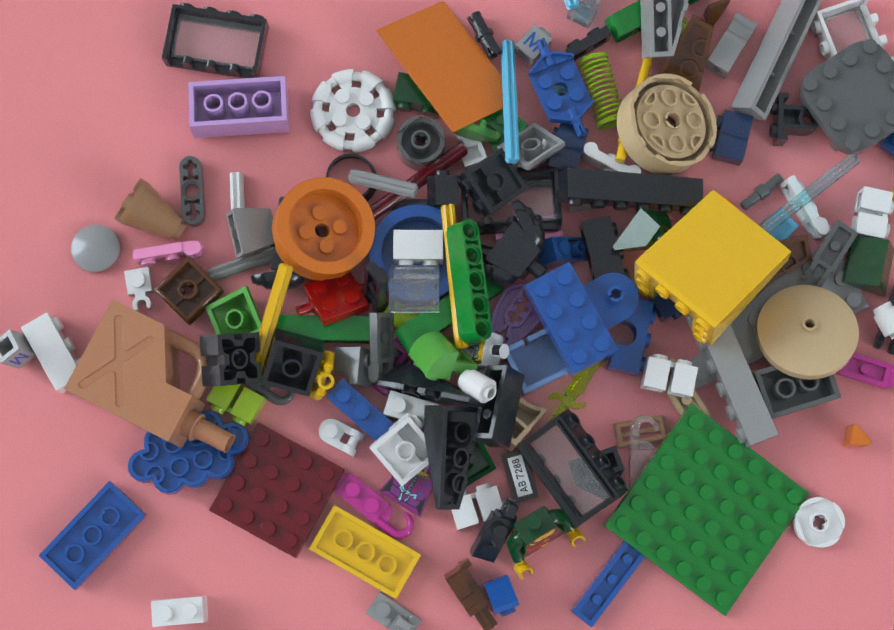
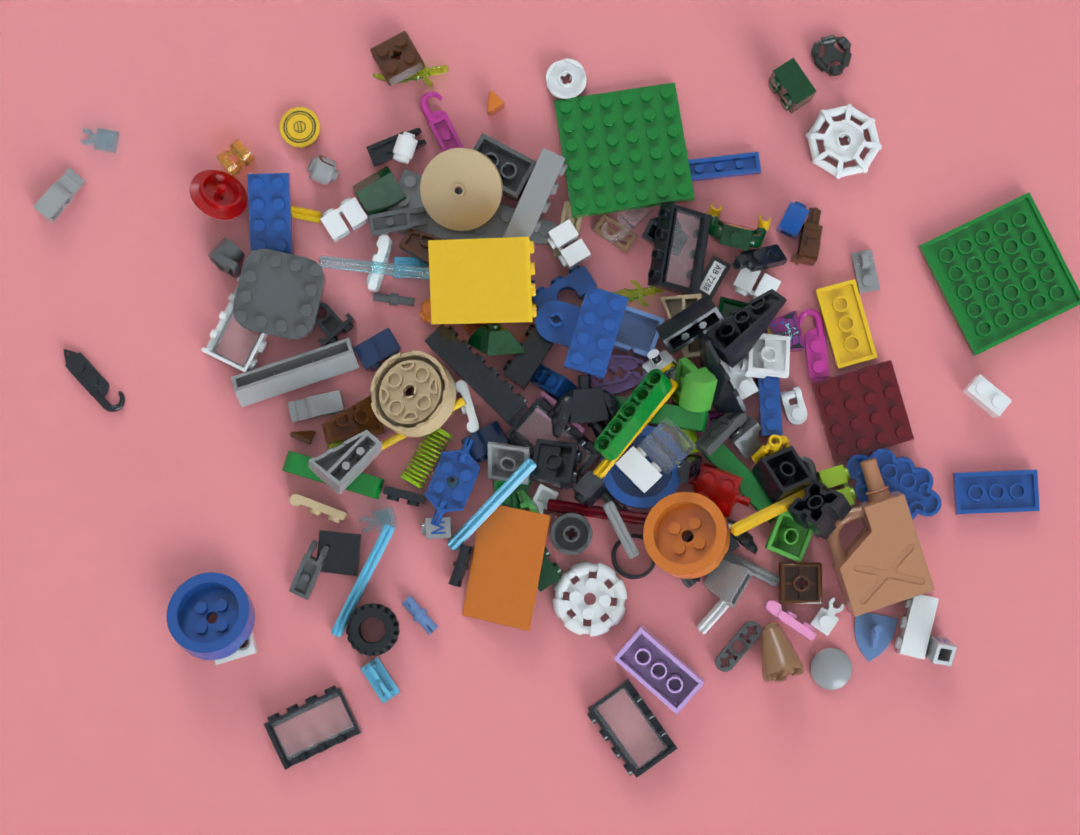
camera: 135 degrees left, 5 degrees up
(84, 312) = (874, 633): none -> medium blue shield
(477, 385) = (692, 345): white brick -> none

